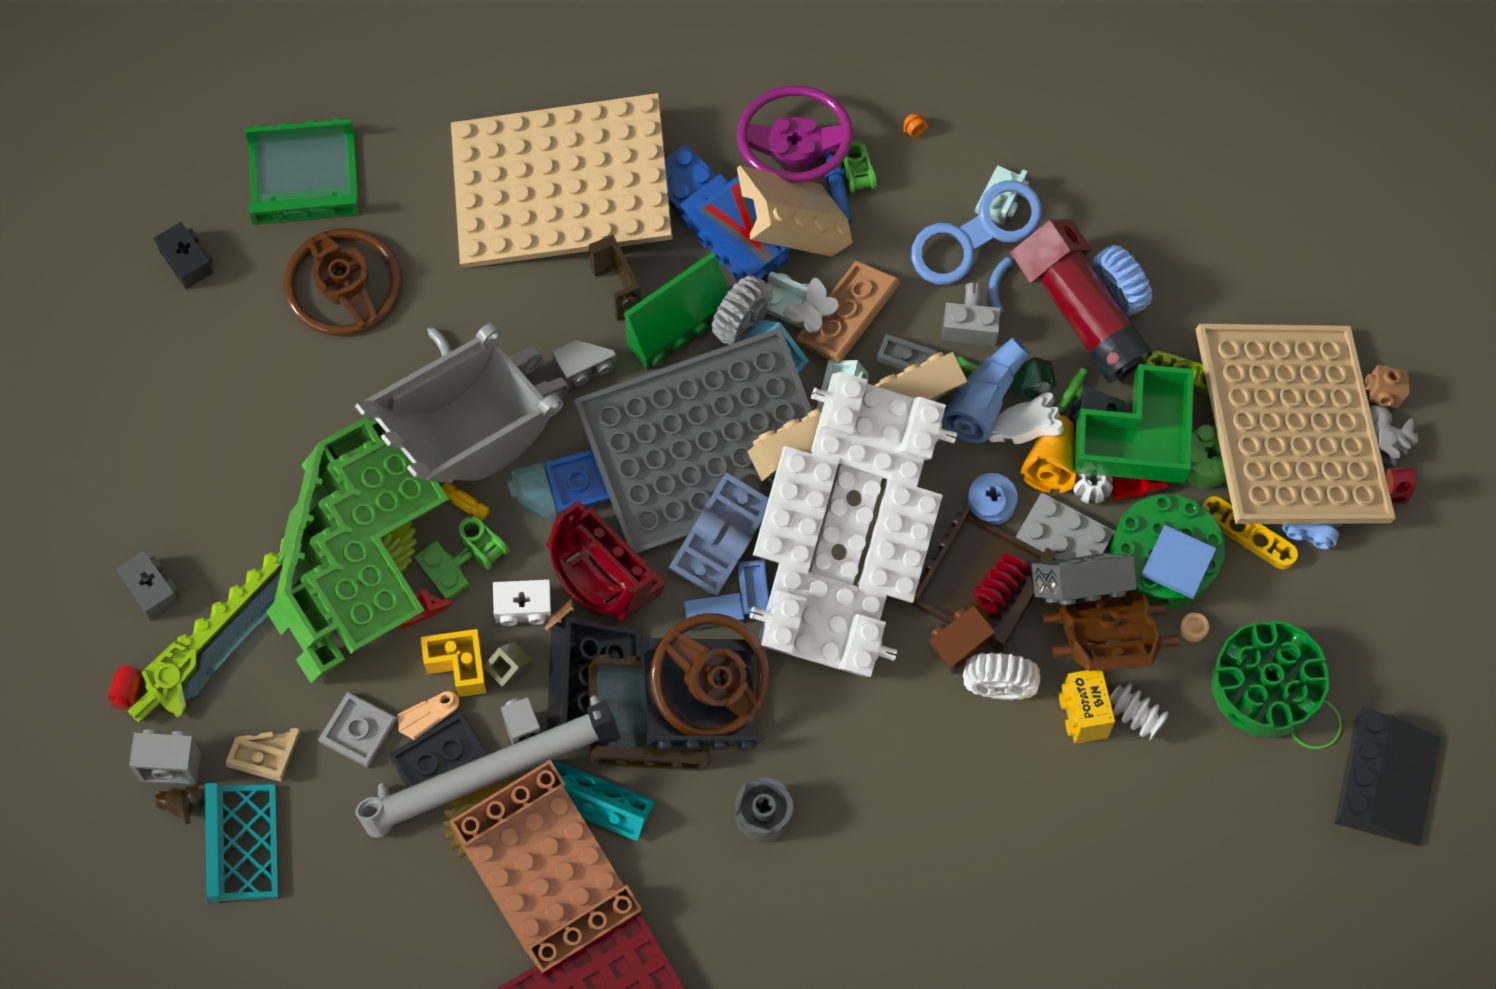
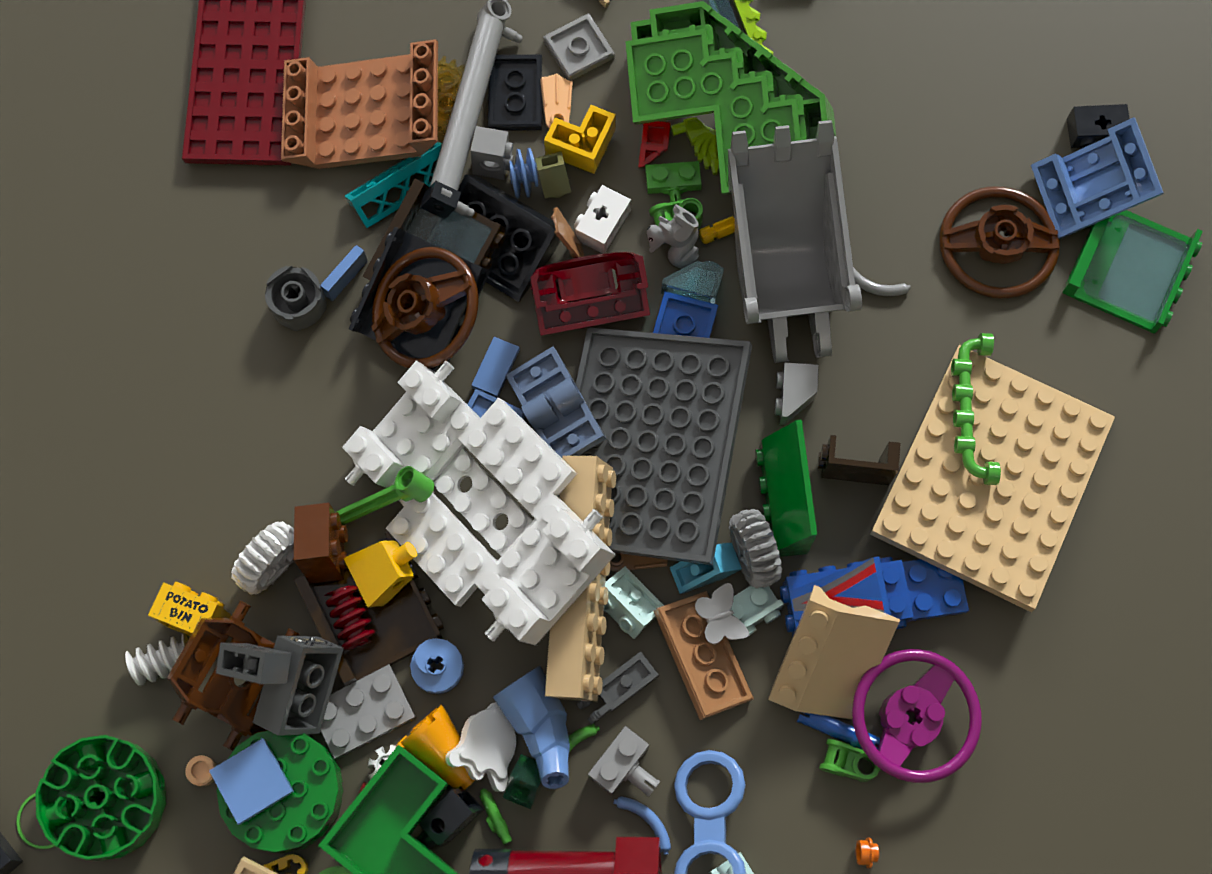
camera: 125 degrees right, 5 degrees up
(246, 223) = (1097, 180): none -> medium blue slope
(506, 524) = (679, 233): none -> light grey animal
(508, 229) = (965, 416): none -> bright green bar
(523, 686) = (523, 173): none -> medium blue piece
(711, 788) = (344, 273): none -> medium blue tile
(880, 597) = (408, 485): none -> bright green axle
(949, 578) = (381, 570): none -> yellow torso
(1097, 597) = (253, 663): none -> dark grey brick

